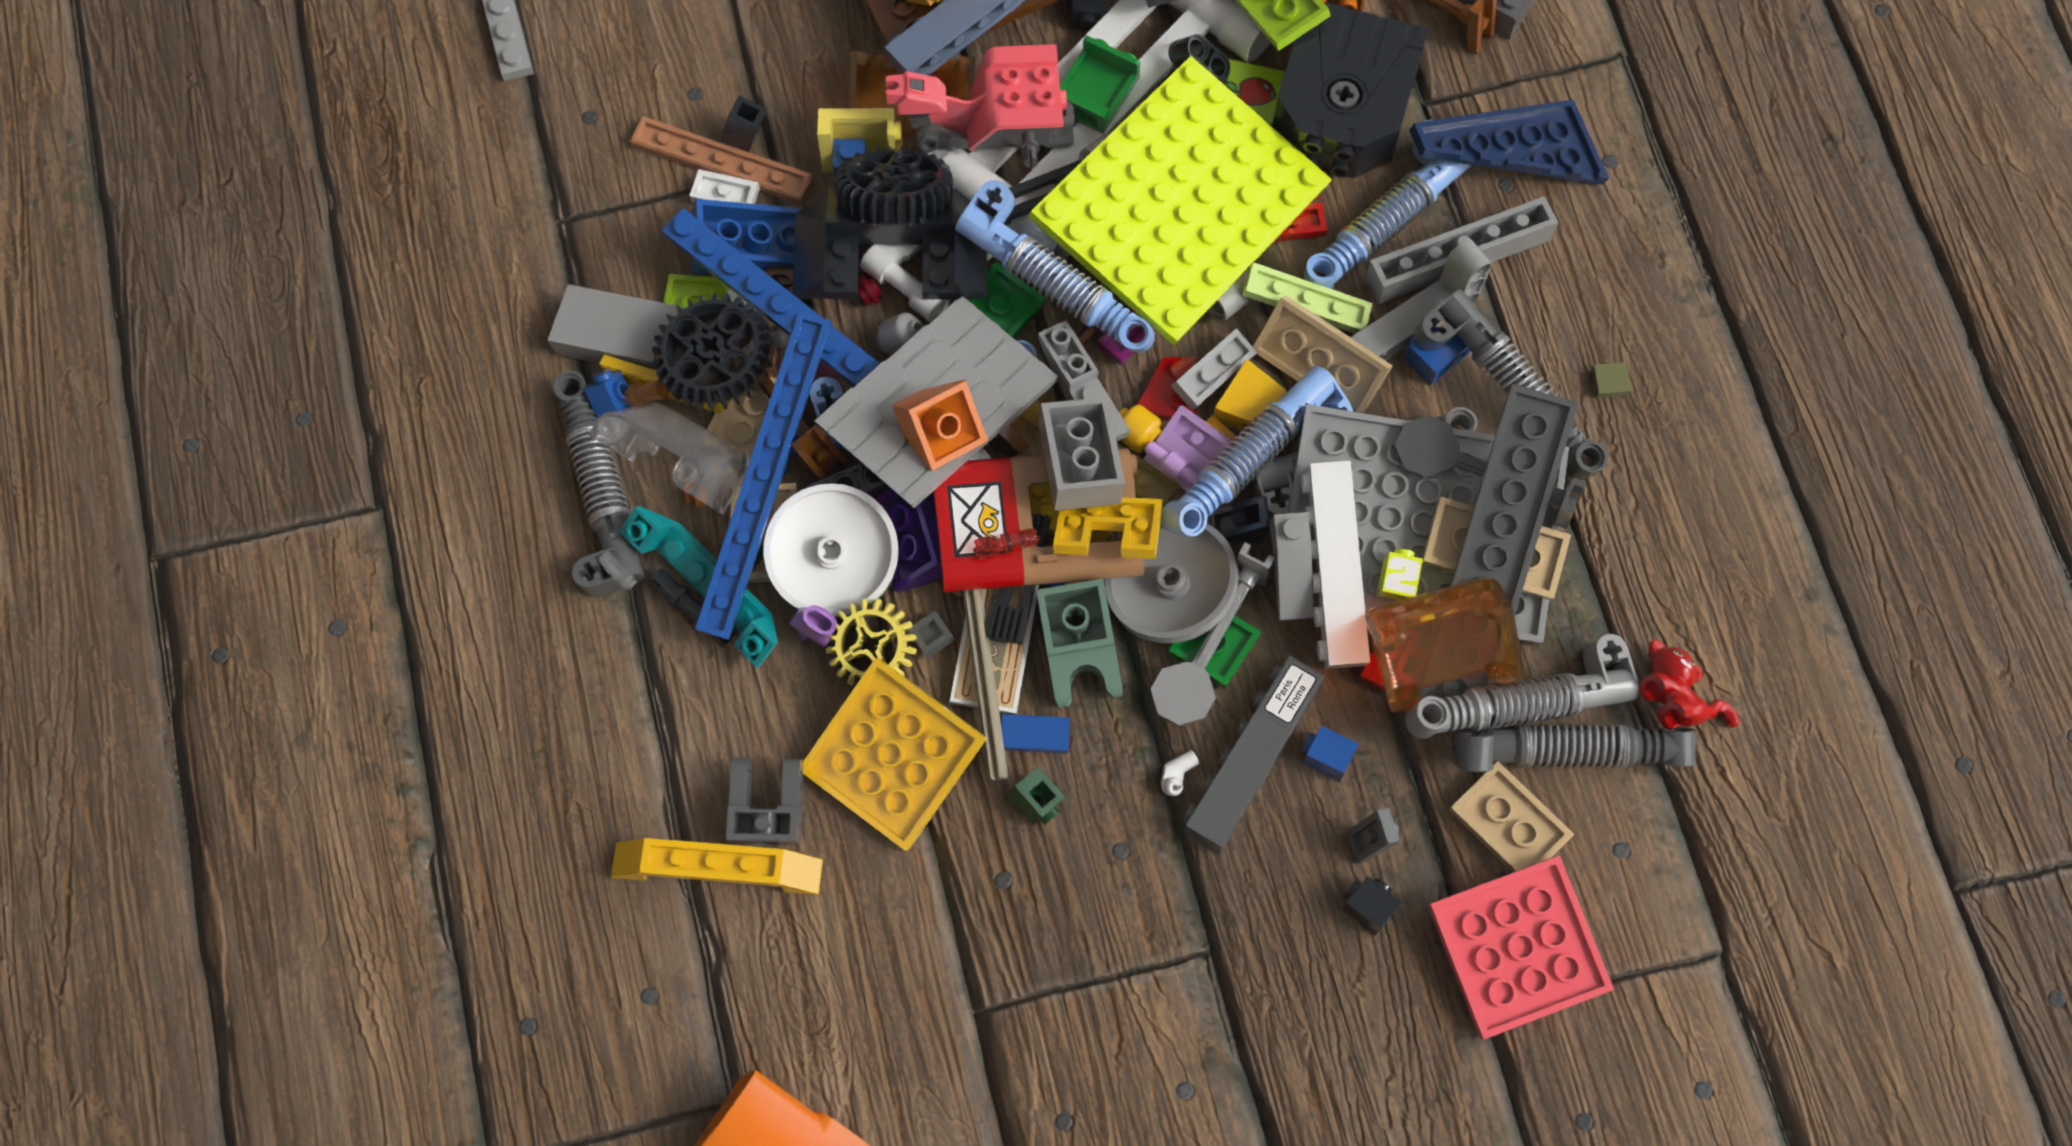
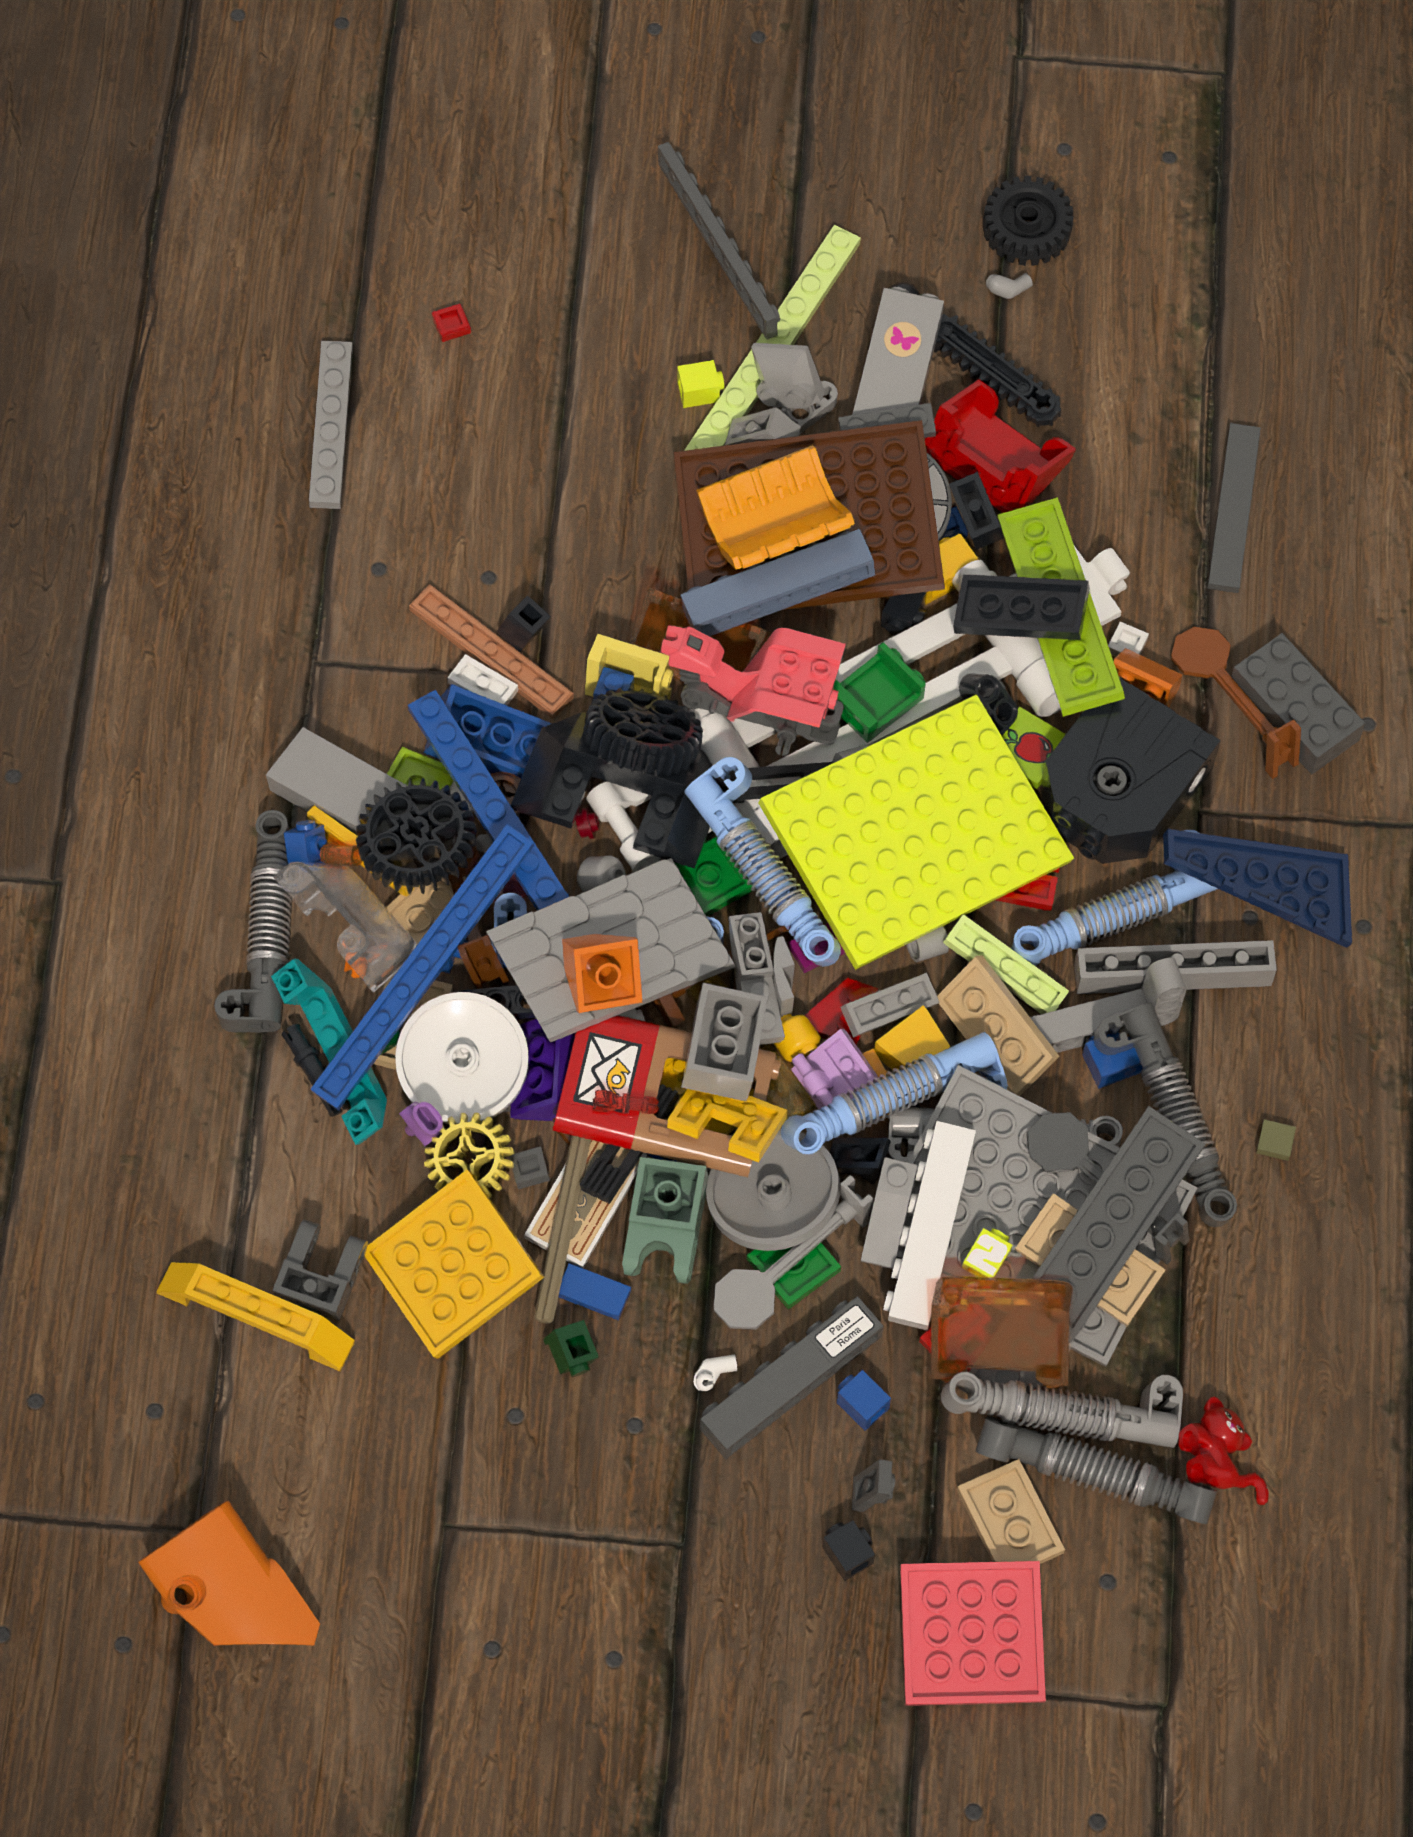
camera: 15 degrees right, 5 degrees down
(617, 570) = (257, 1012): clear tile -> none
(1106, 365) = (783, 977): none -> light grey slope

